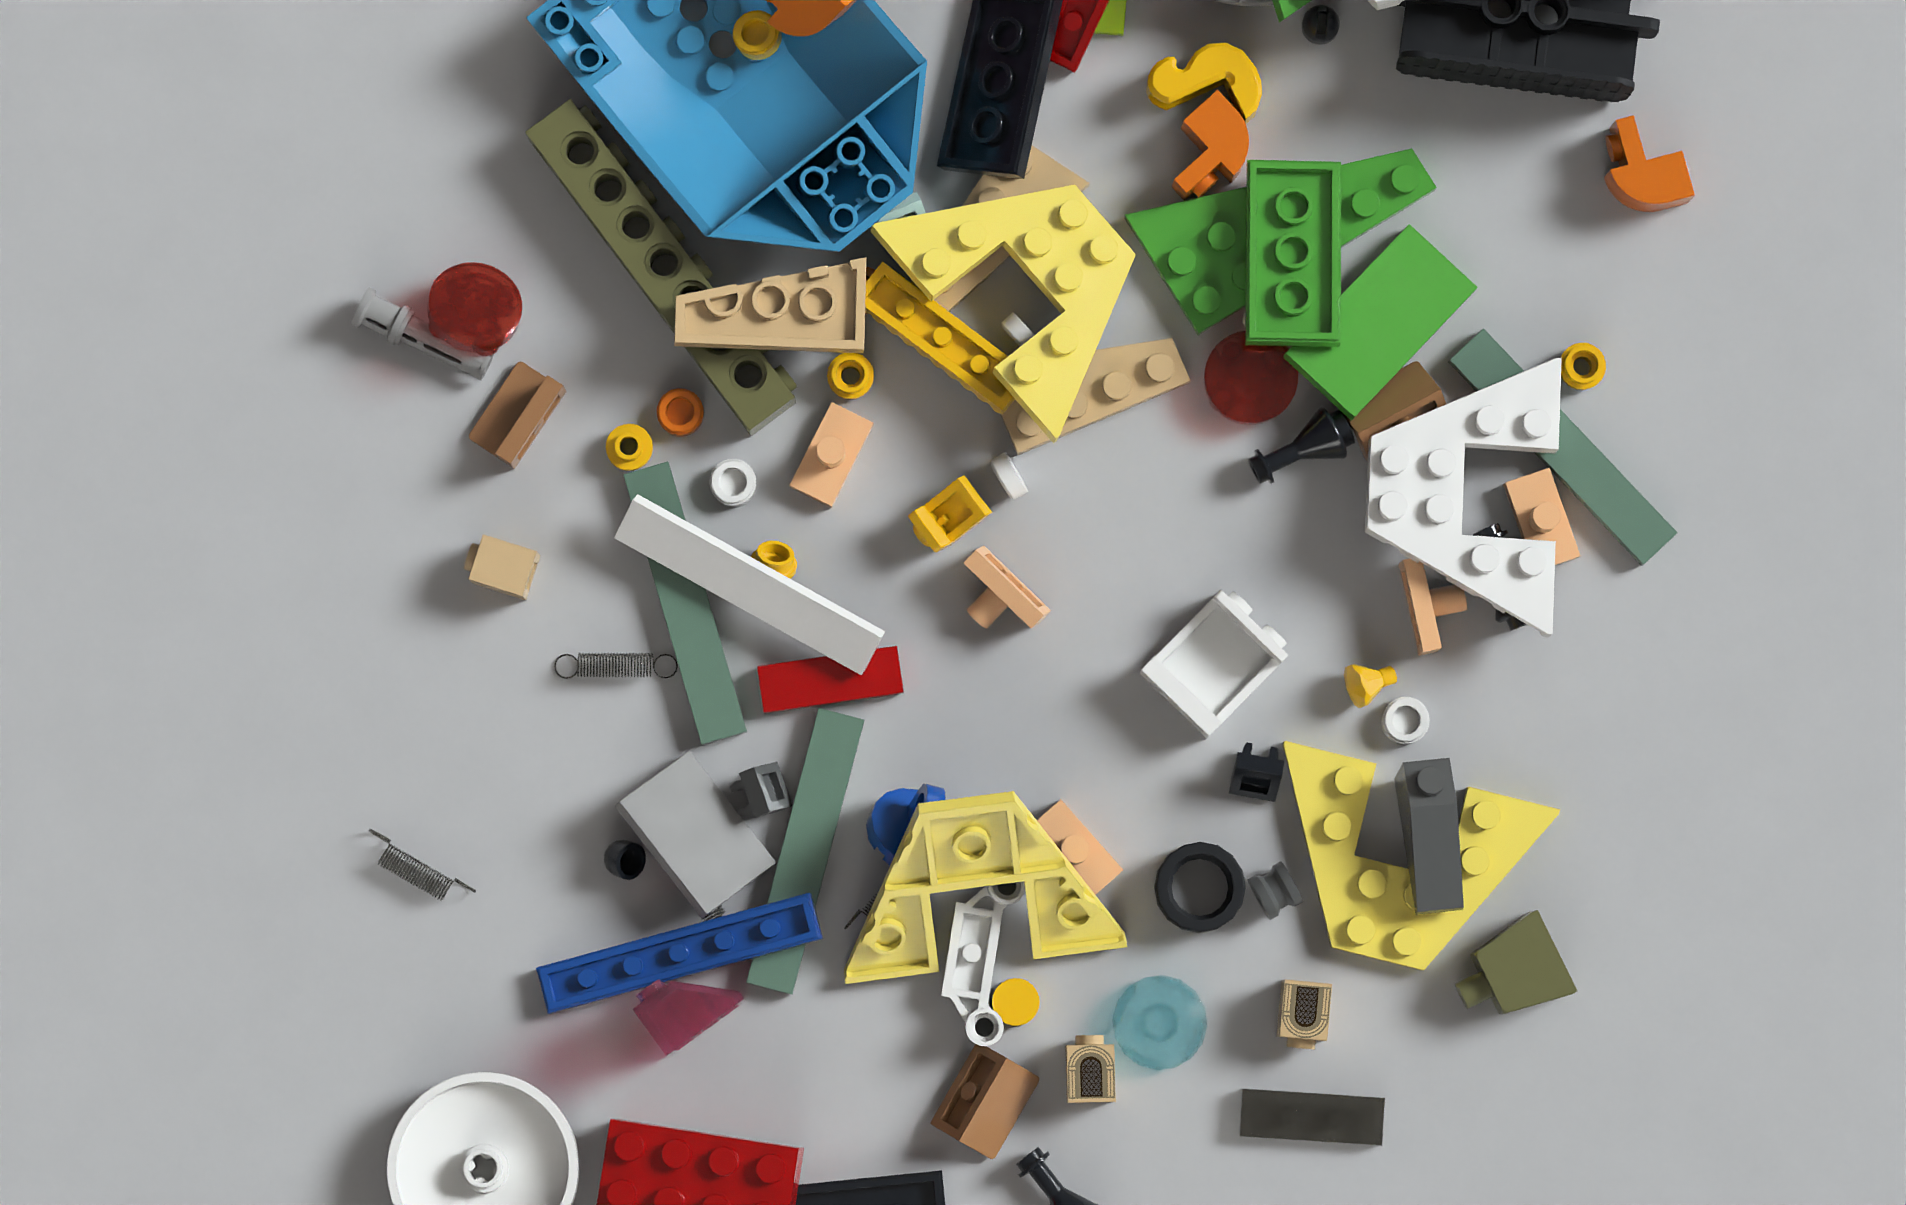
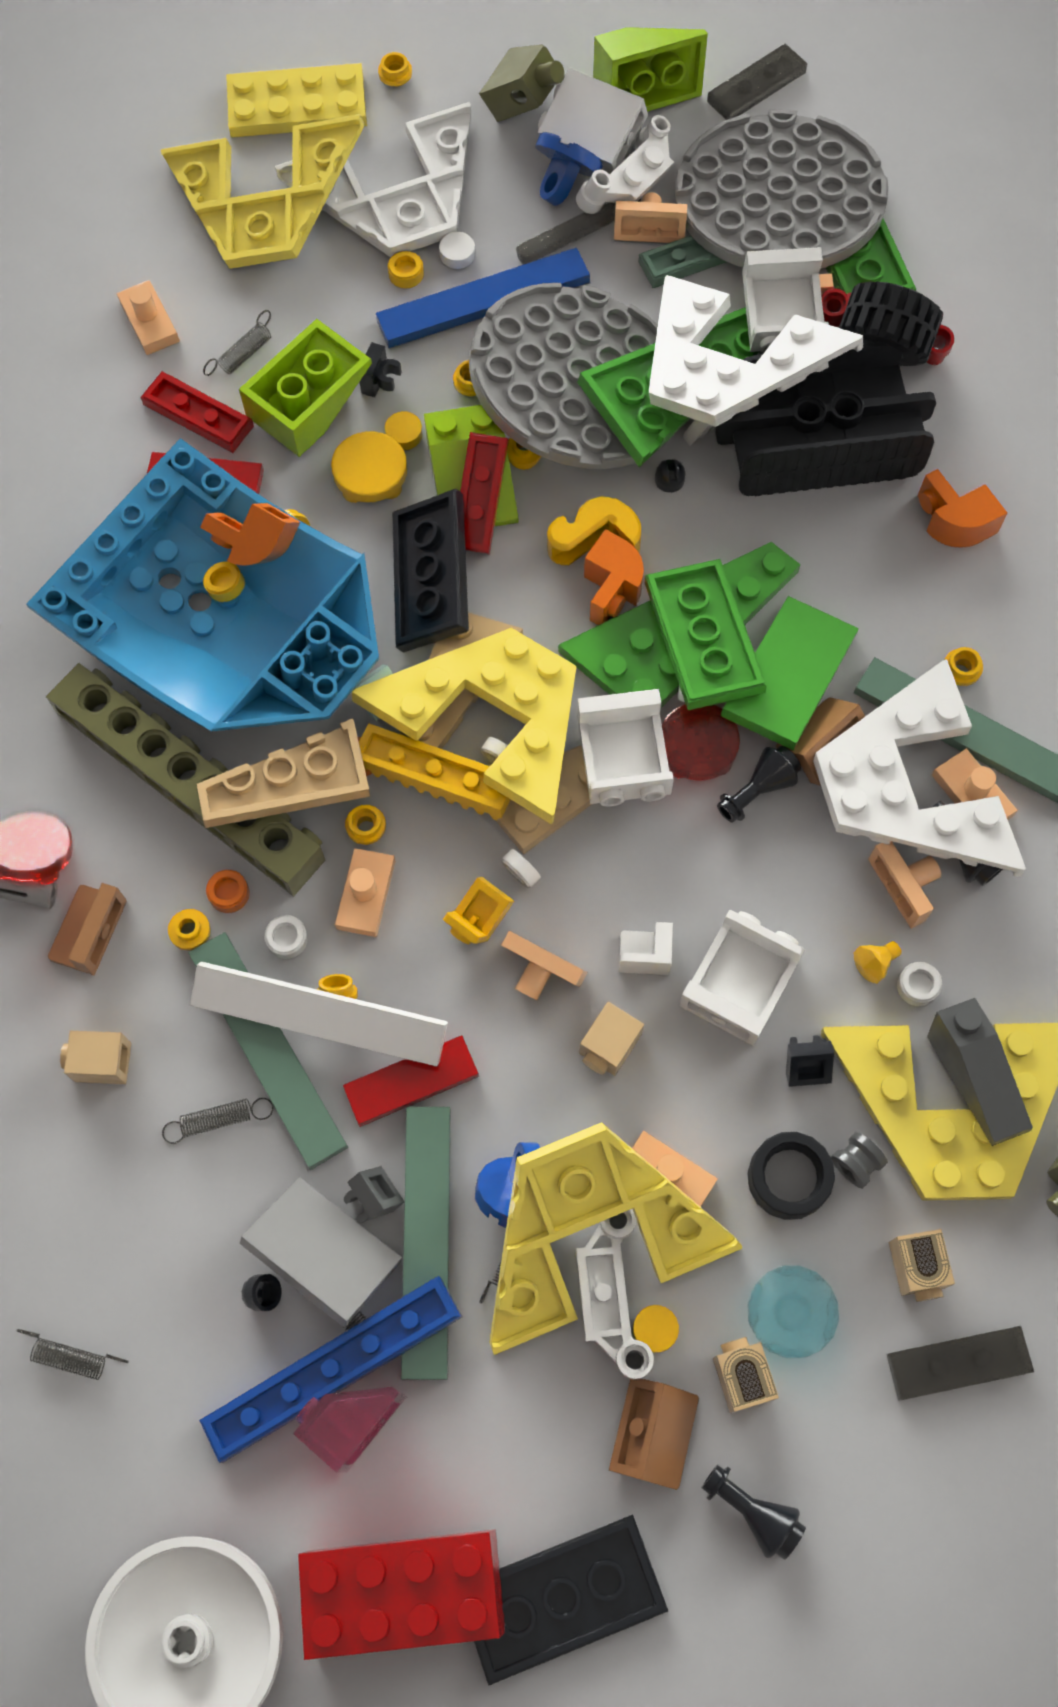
camera: 10 degrees left, 15 degrees down
(1052, 695) = (610, 1040): none -> tan brick
(1120, 604) = (647, 951): none -> white panel
(1160, 372) = (624, 747): none -> white panel

